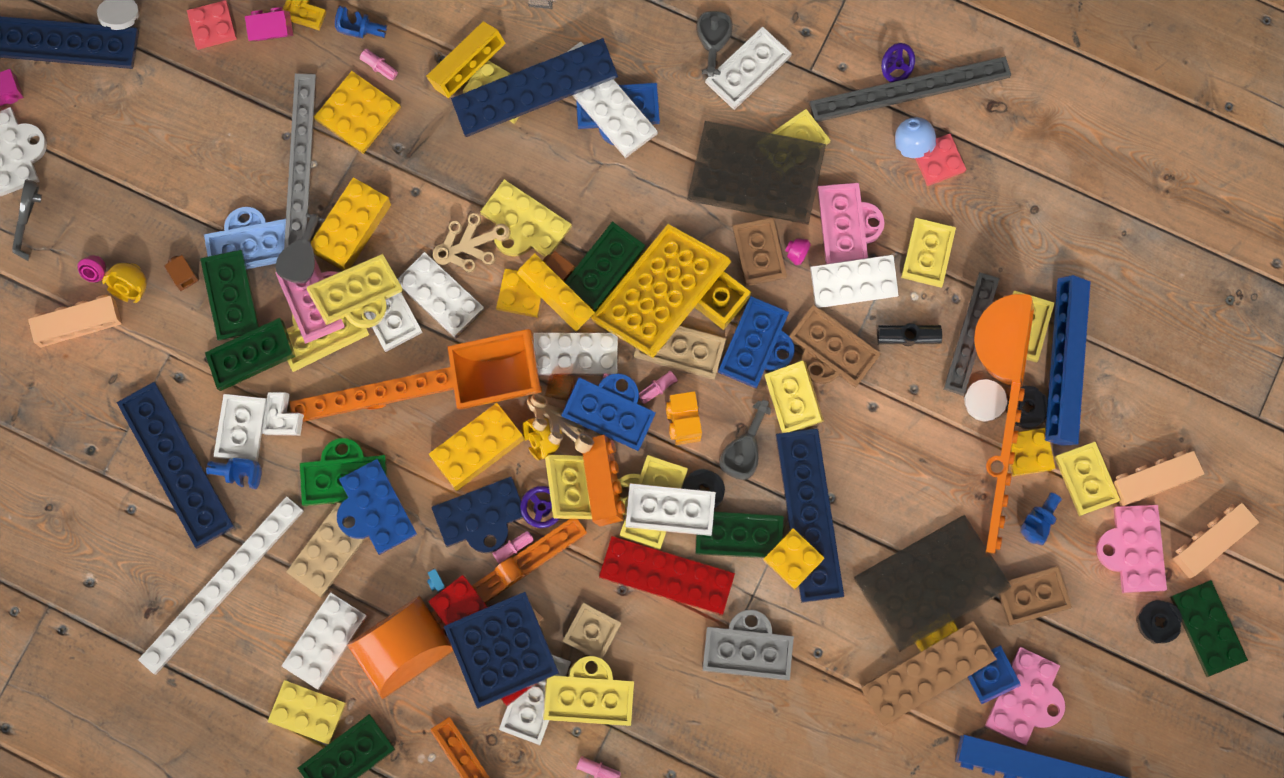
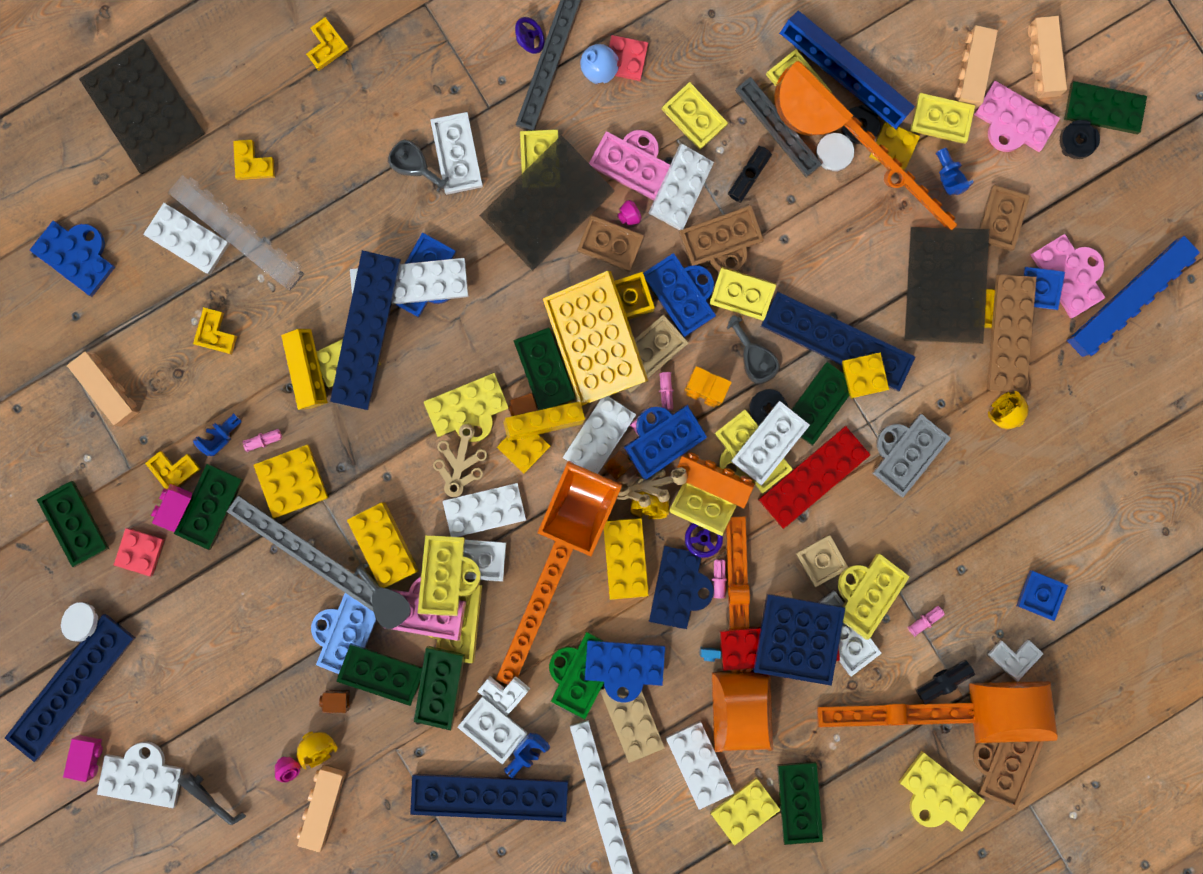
camera: 60 degrees left, 10 degrees up
(289, 55) = (208, 506): none -> dark green plate
(852, 720) = (1009, 411): none -> yellow cylinder

